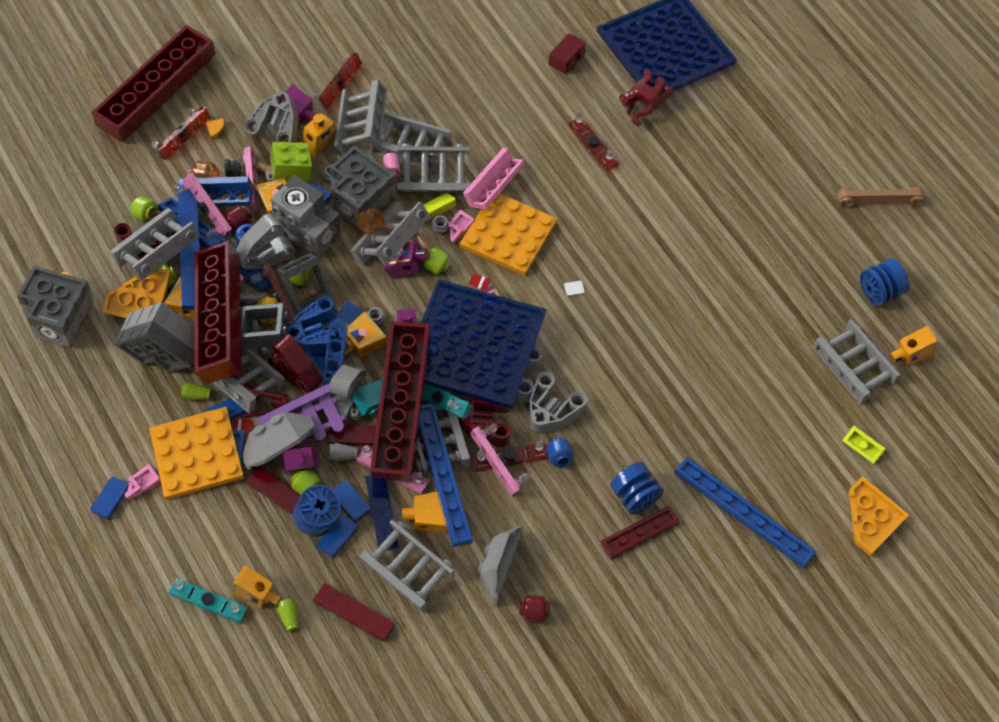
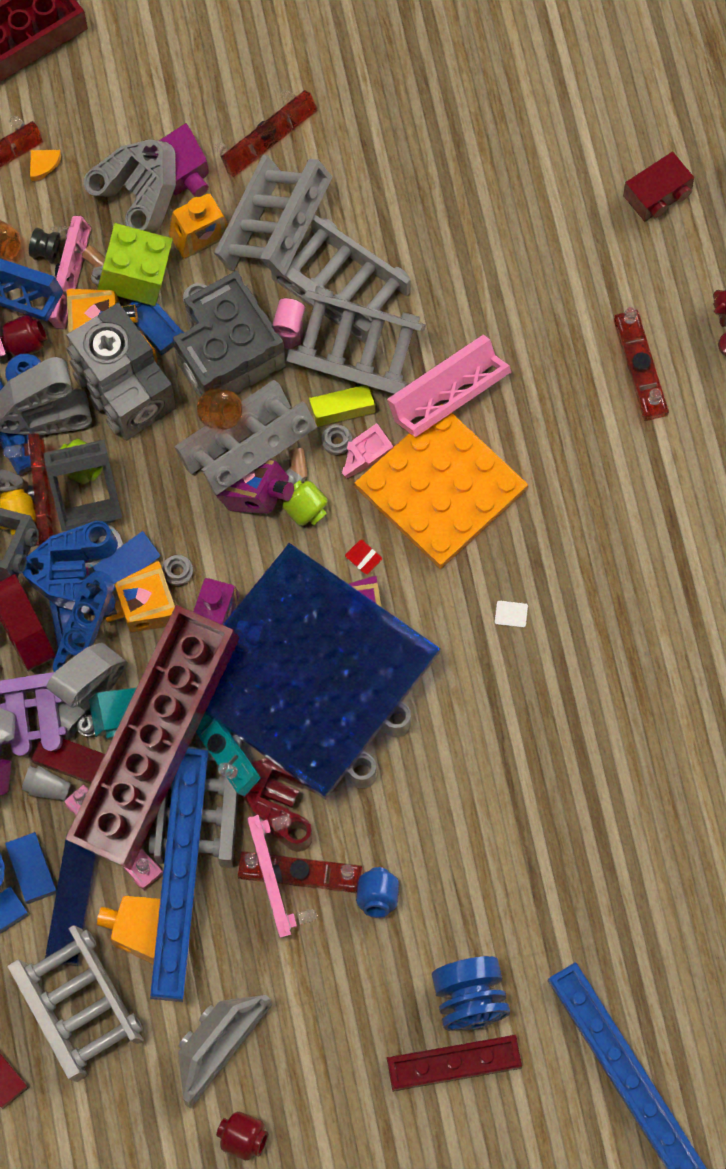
camera: 25 degrees right, 10 degrees up
(565, 414) = (408, 831): light grey connector -> none

